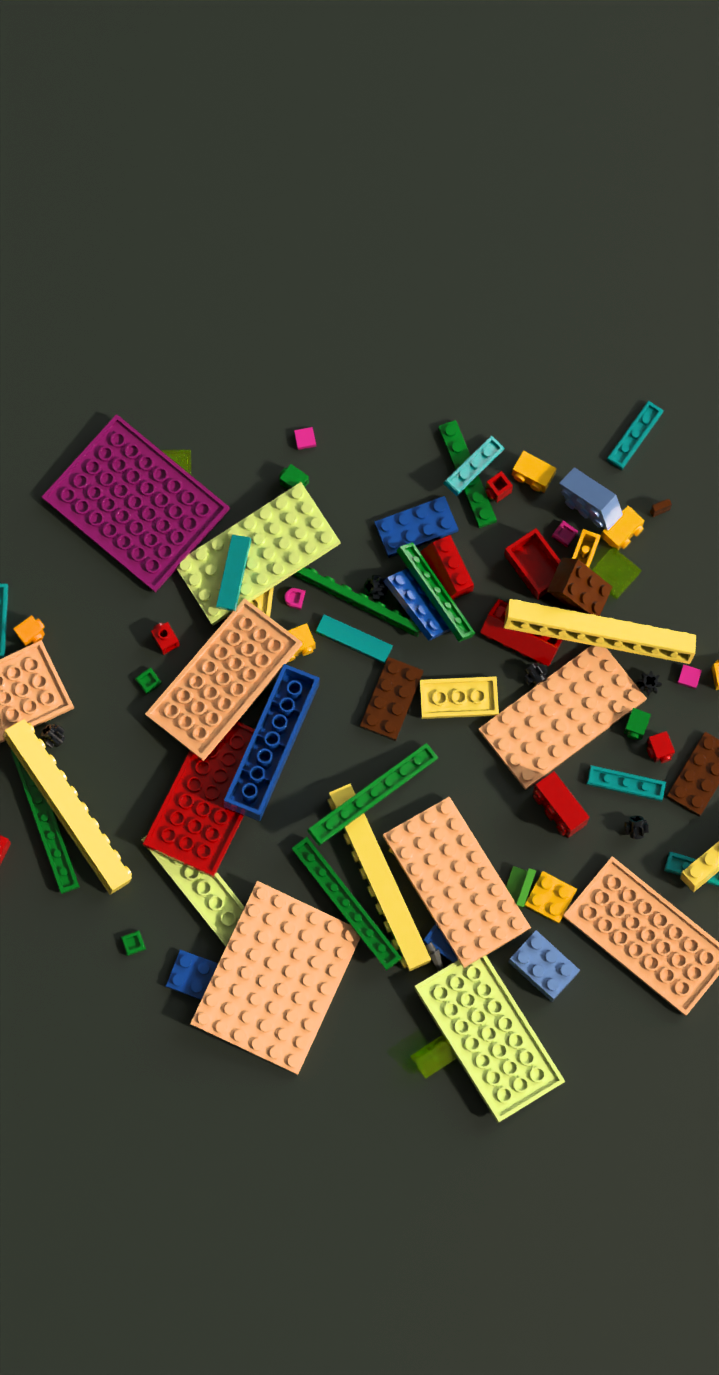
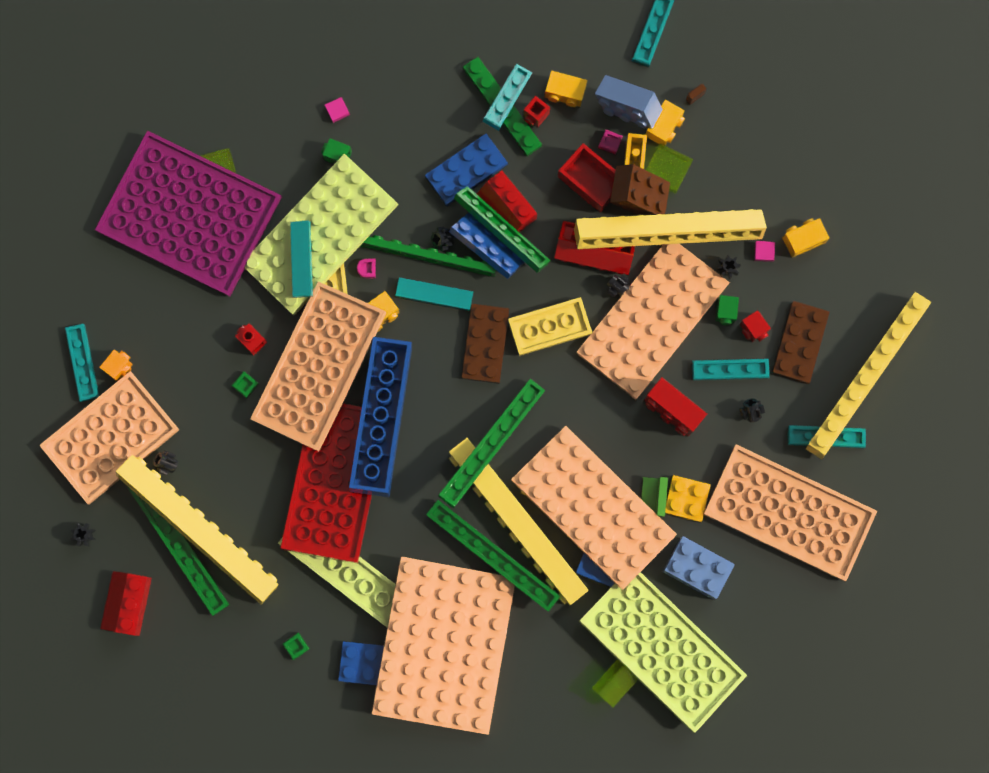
camera: 15 degrees left, 5 degrees up
(434, 955) = (591, 584): dark grey bar -> none

